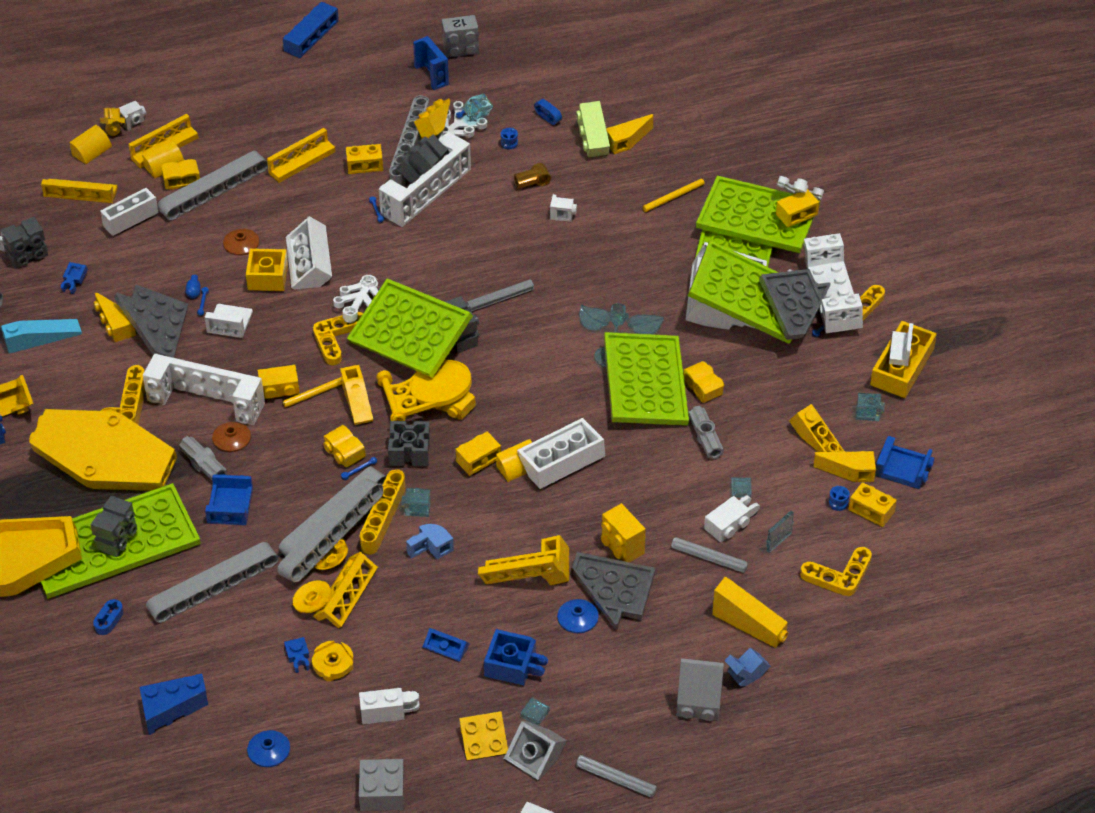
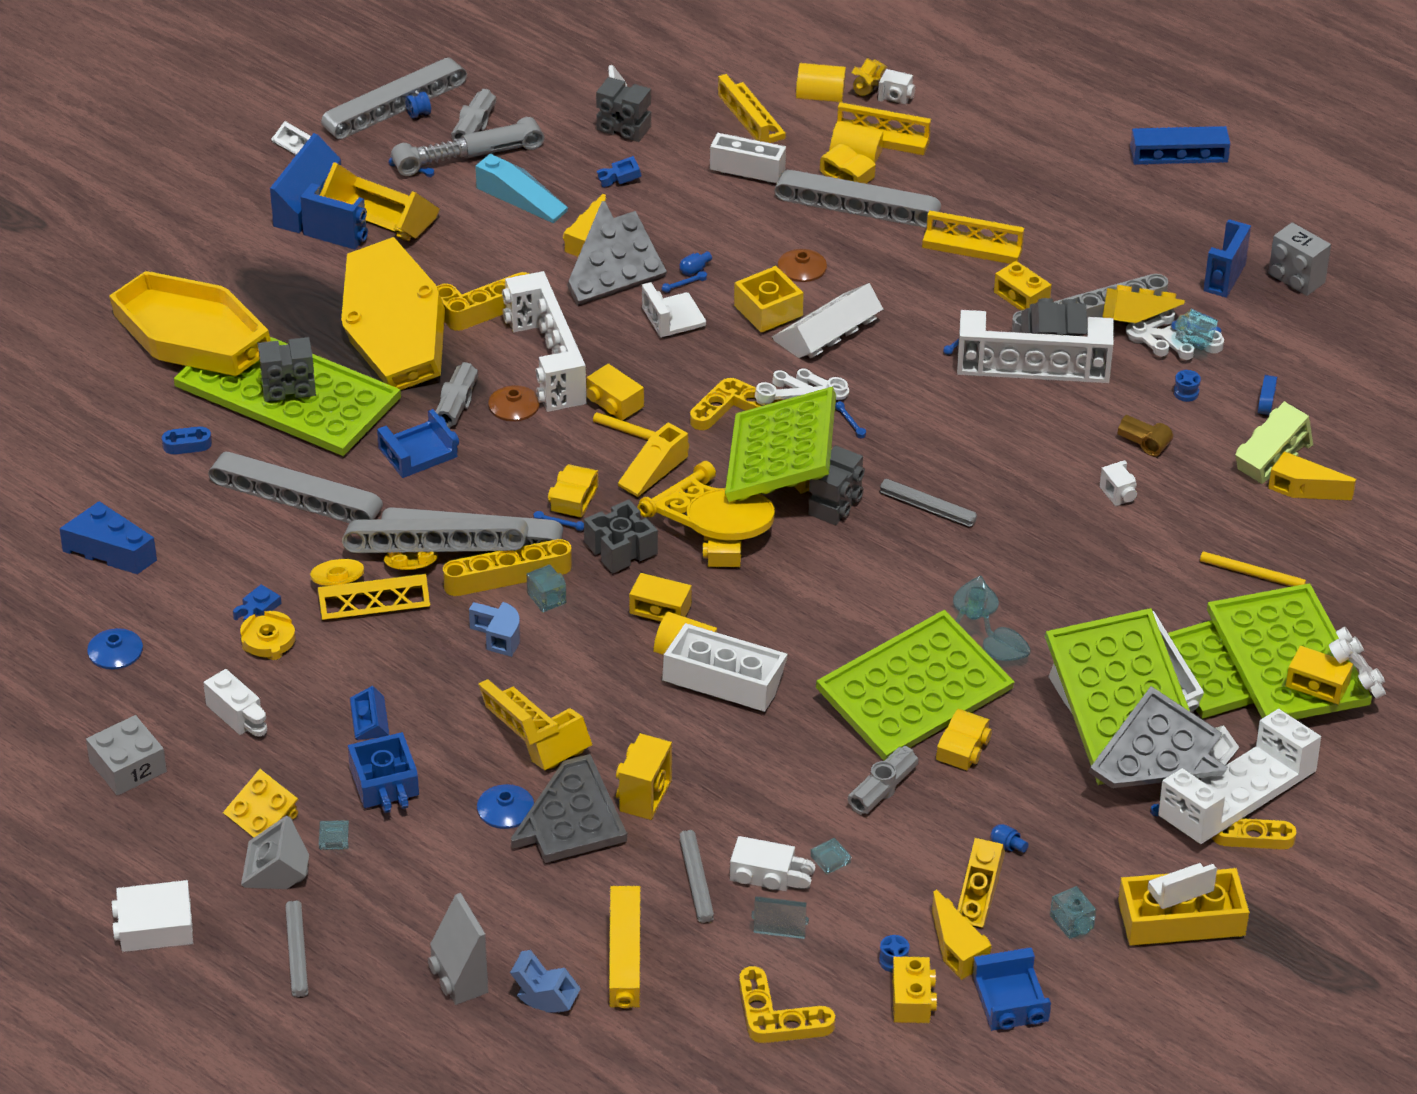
camera: 55 degrees right, 5 degrees down
(790, 404) = (1008, 837): none -> blue cylinder

